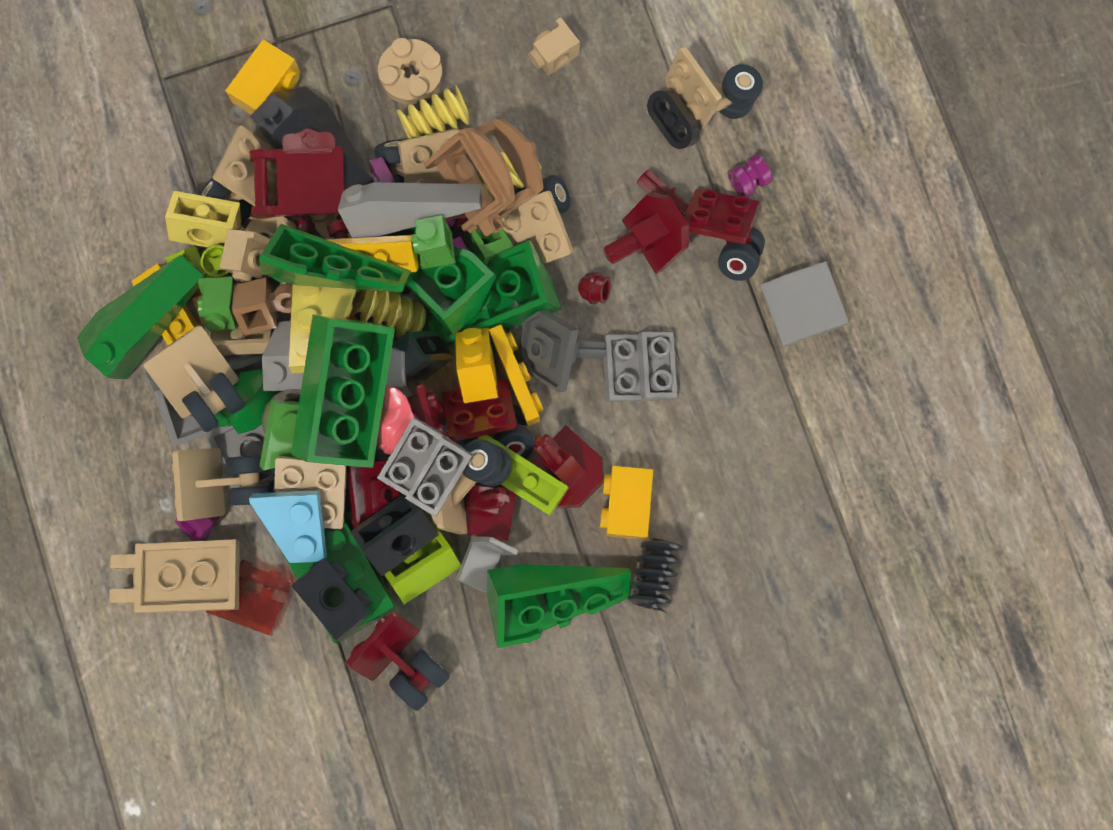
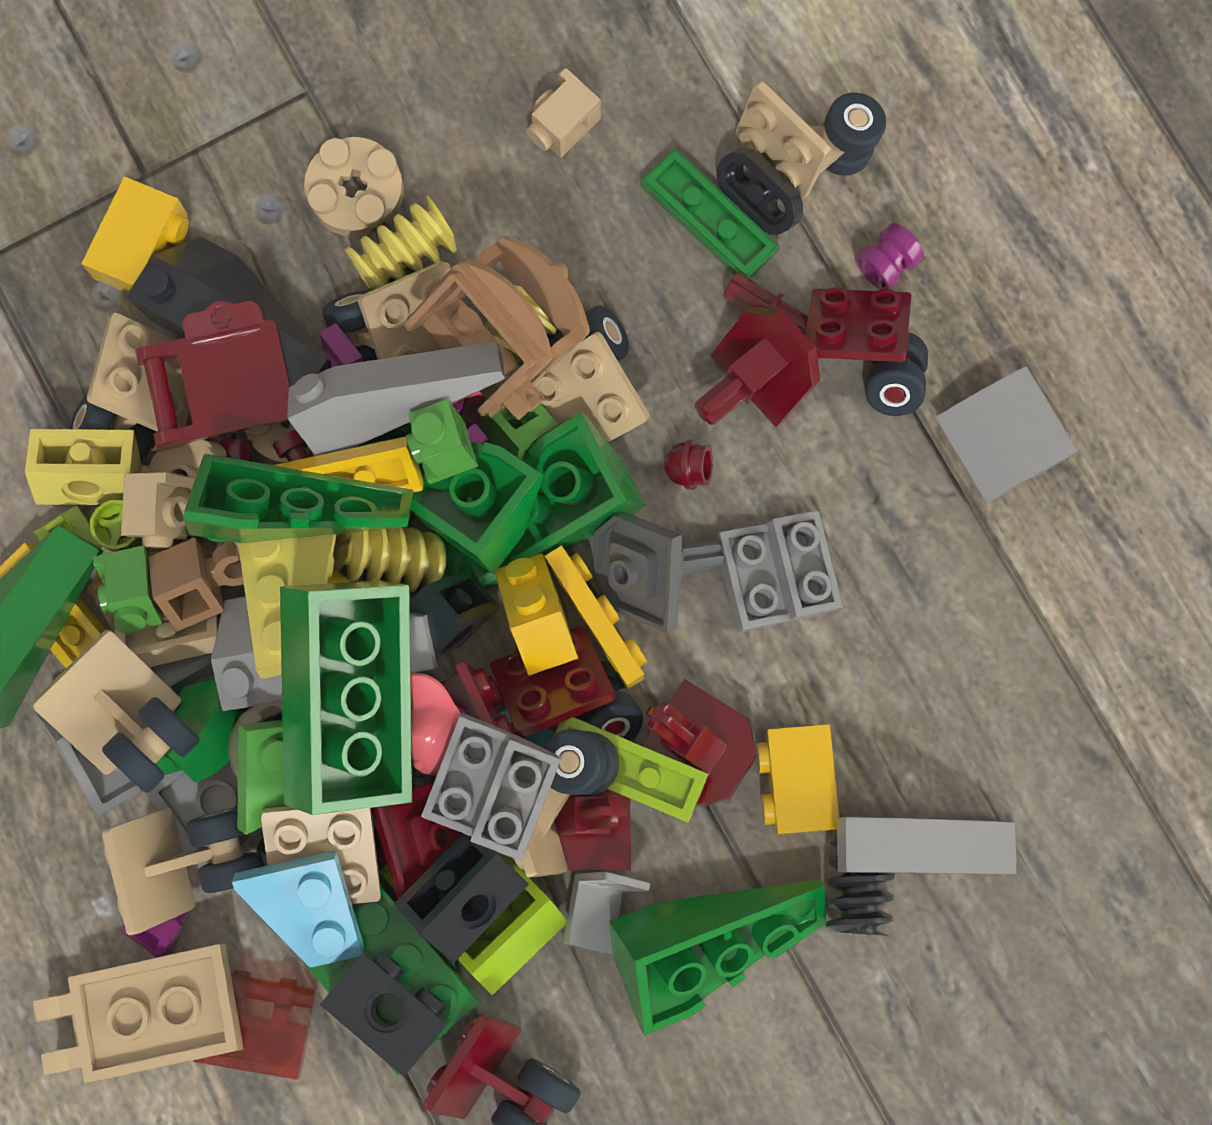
camera: 10 degrees left, 0 degrees up
(638, 129) = (709, 215): none -> green tile
(701, 558) = (925, 846): none -> light grey slope

